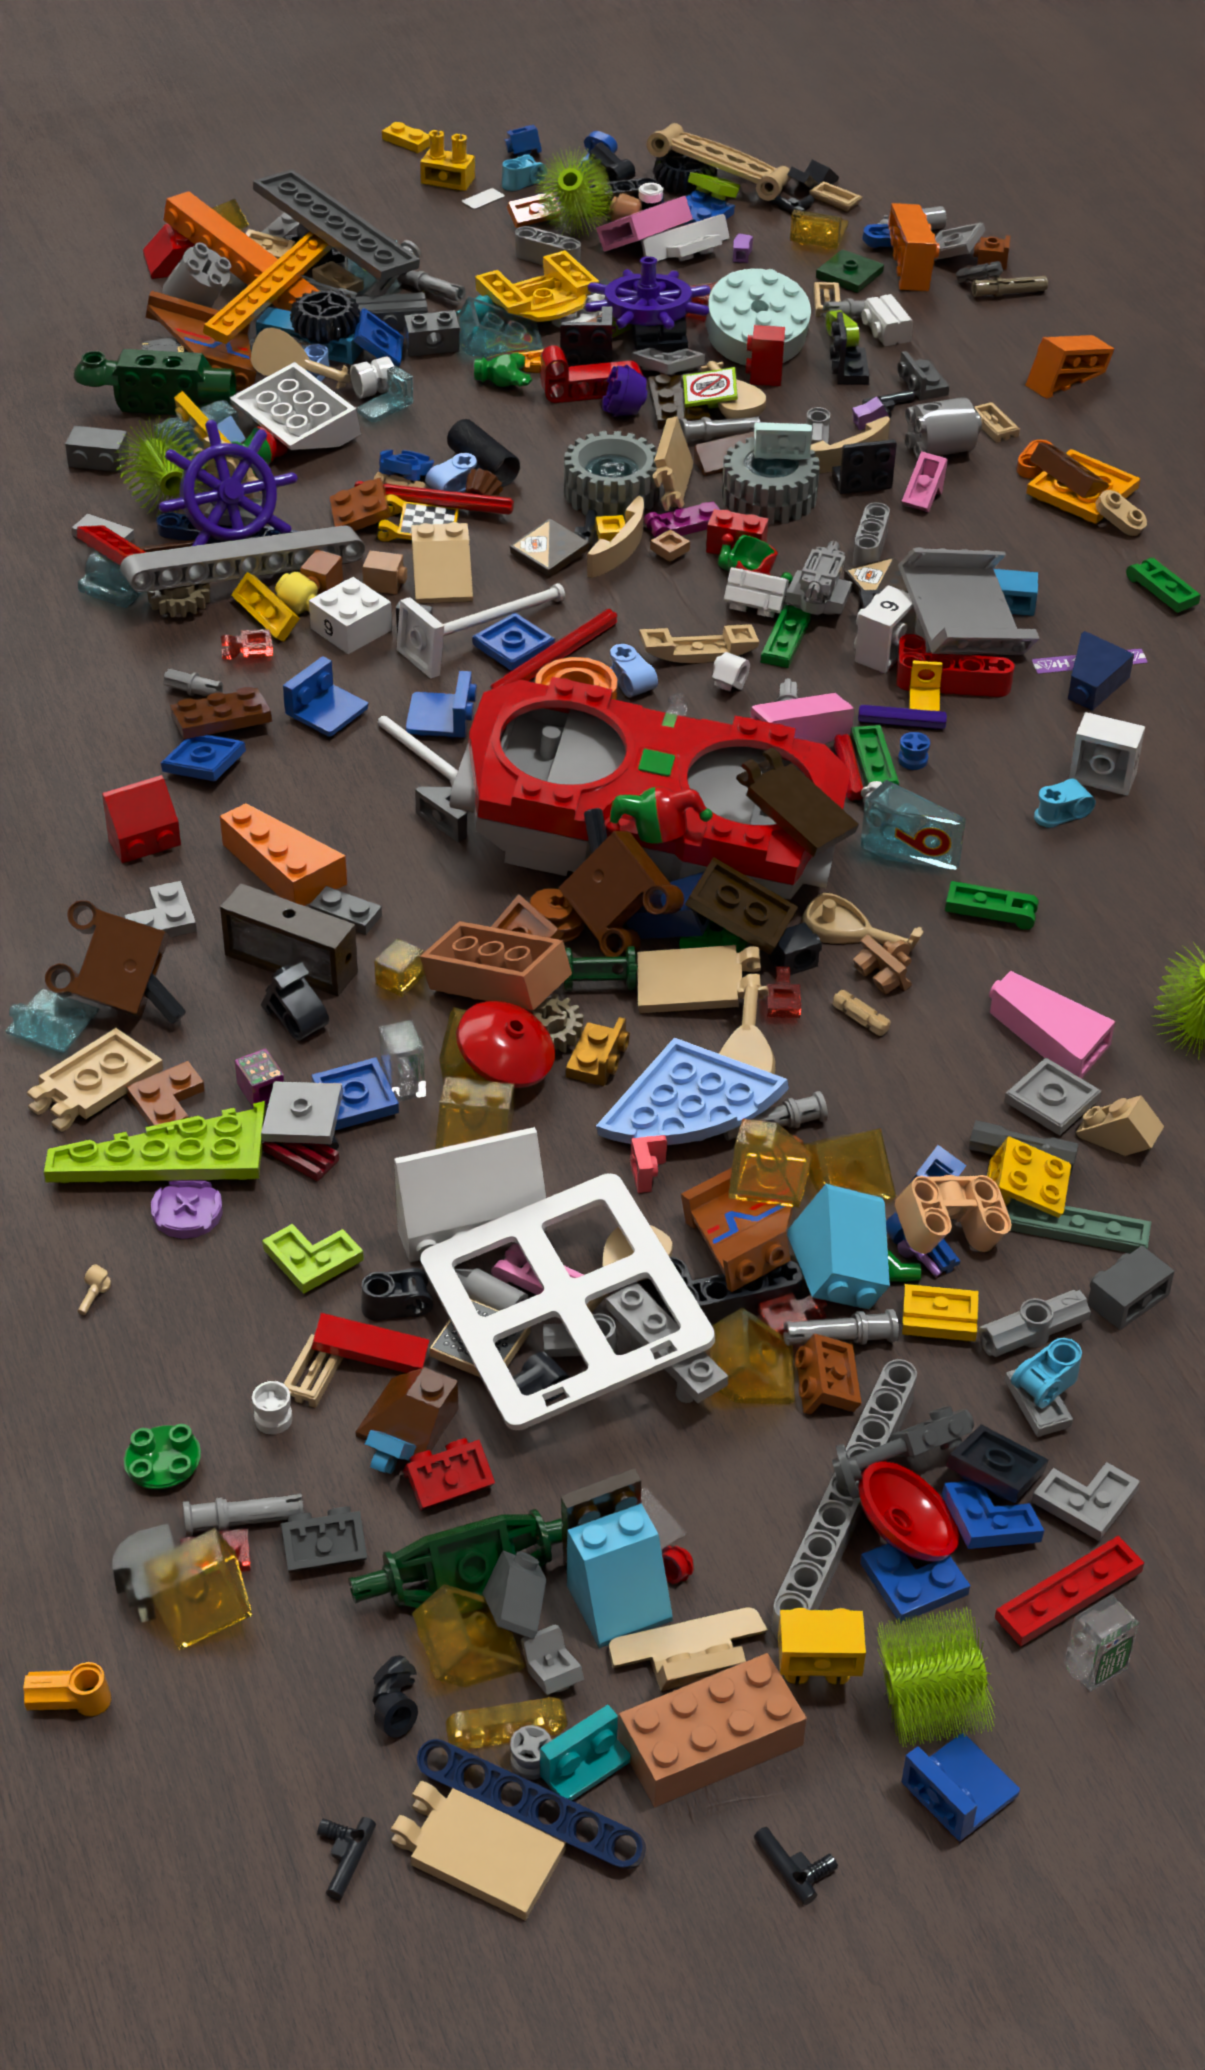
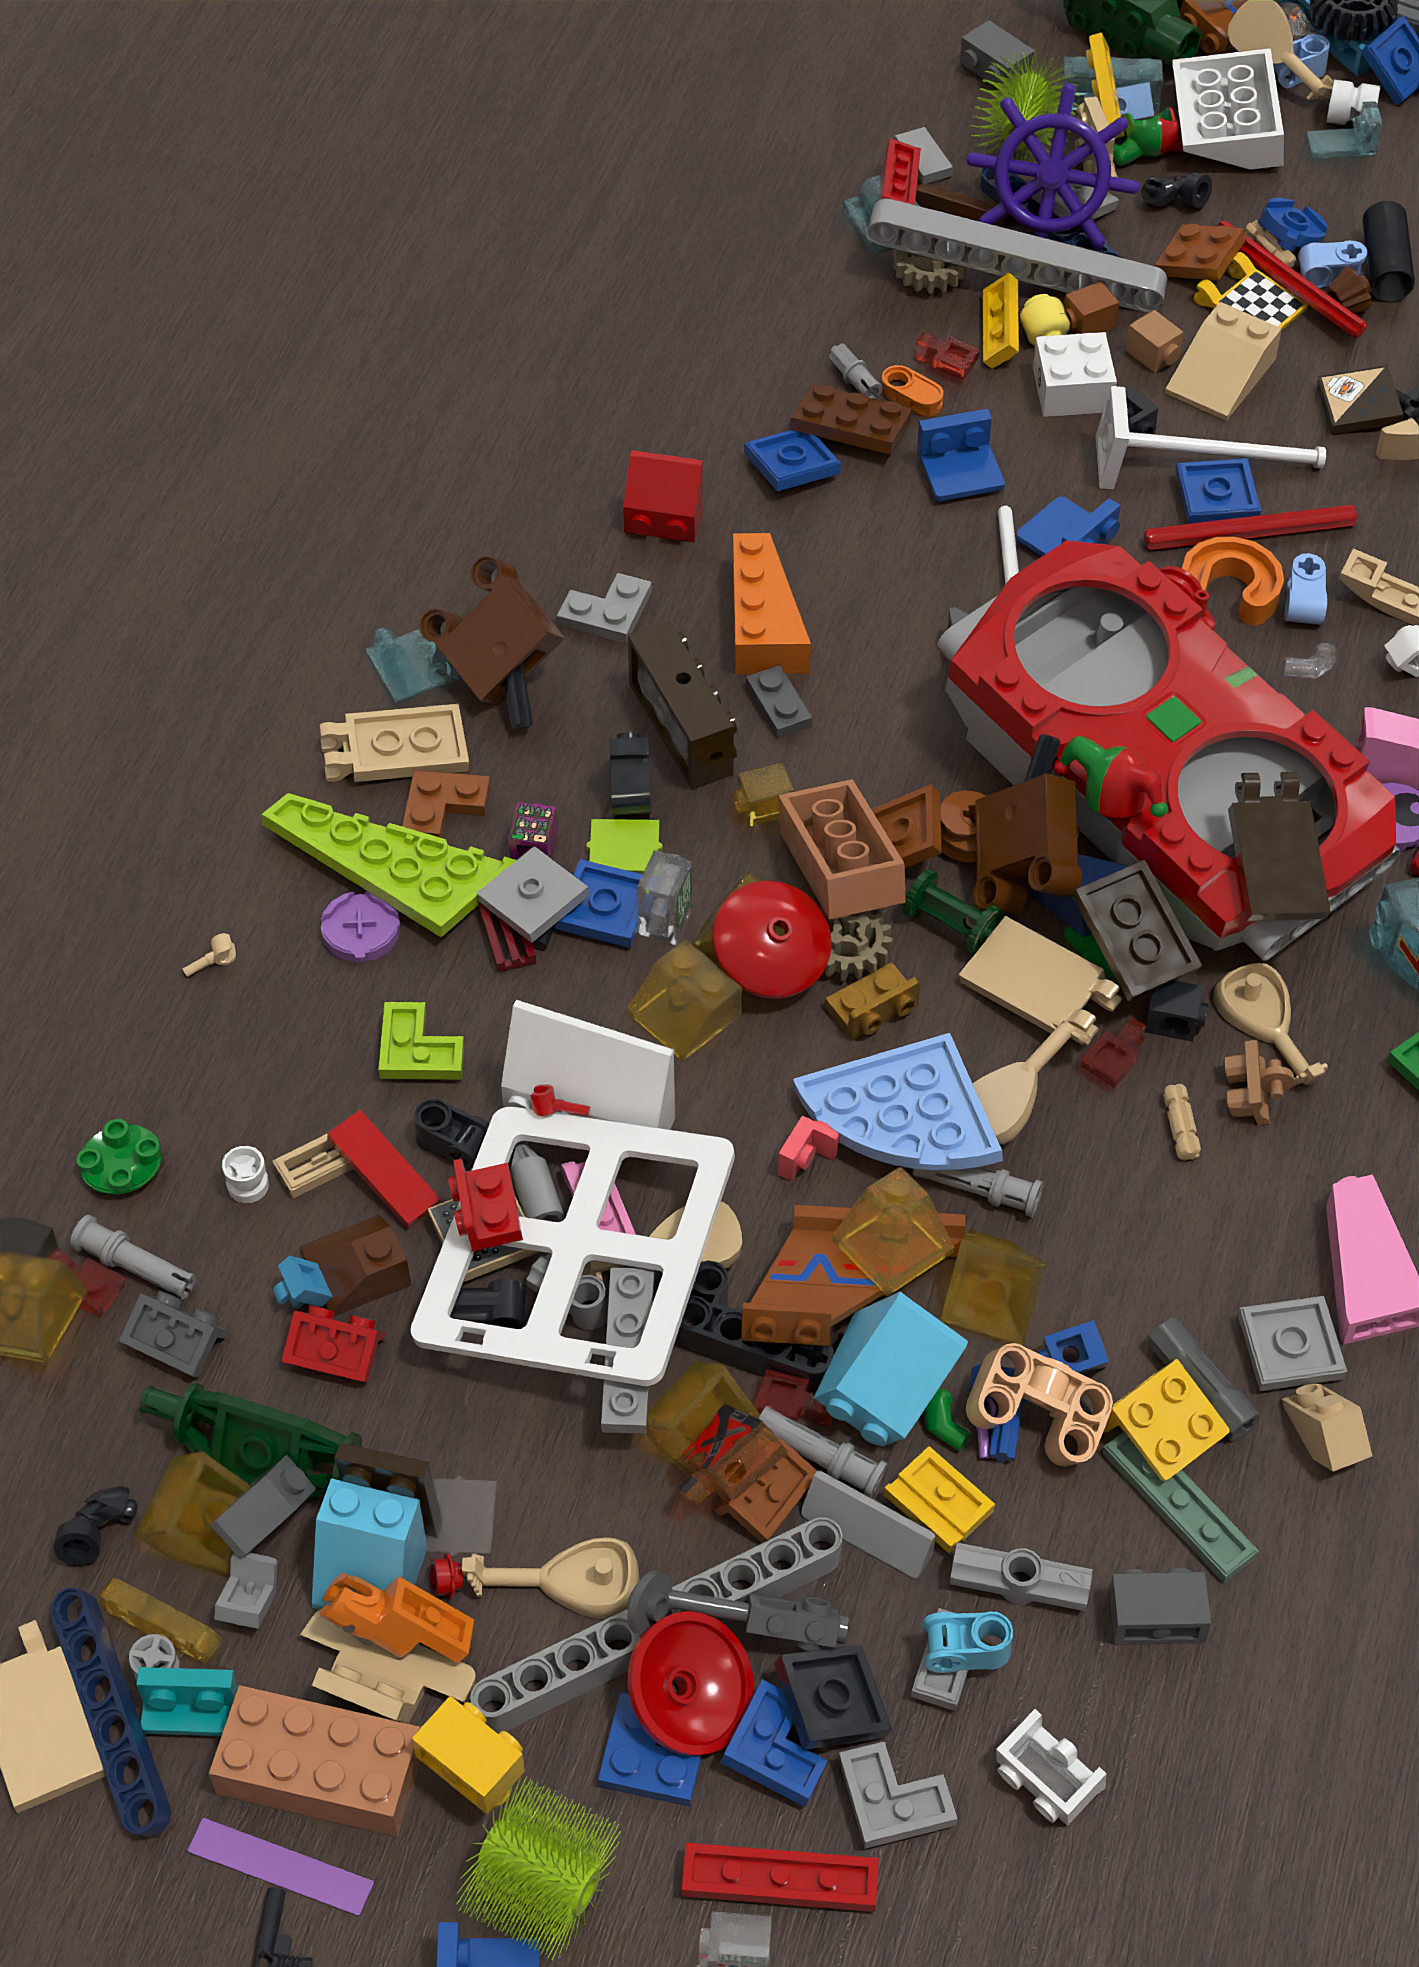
camera: 40 degrees right, 10 degrees up
(246, 675) = (919, 393): none -> orange piece
(315, 472) = (1193, 189): none -> black arm
(327, 1051) = (623, 843): none -> lime piece
(456, 1228) = (544, 1103): none -> red hand
(482, 1311) = (487, 1205): none -> red bracket
(676, 1603) = (397, 1617): none -> orange plate
(744, 1818) = (281, 1866): none -> medium lavender sticker
(768, 1502) = (586, 1578): none -> tan piece
(798, 1358) = (729, 1456): none -> clear orange torso
(929, 1351) = (870, 1525): none -> light grey slope
(1163, 1421) = (1048, 1770): none -> white window

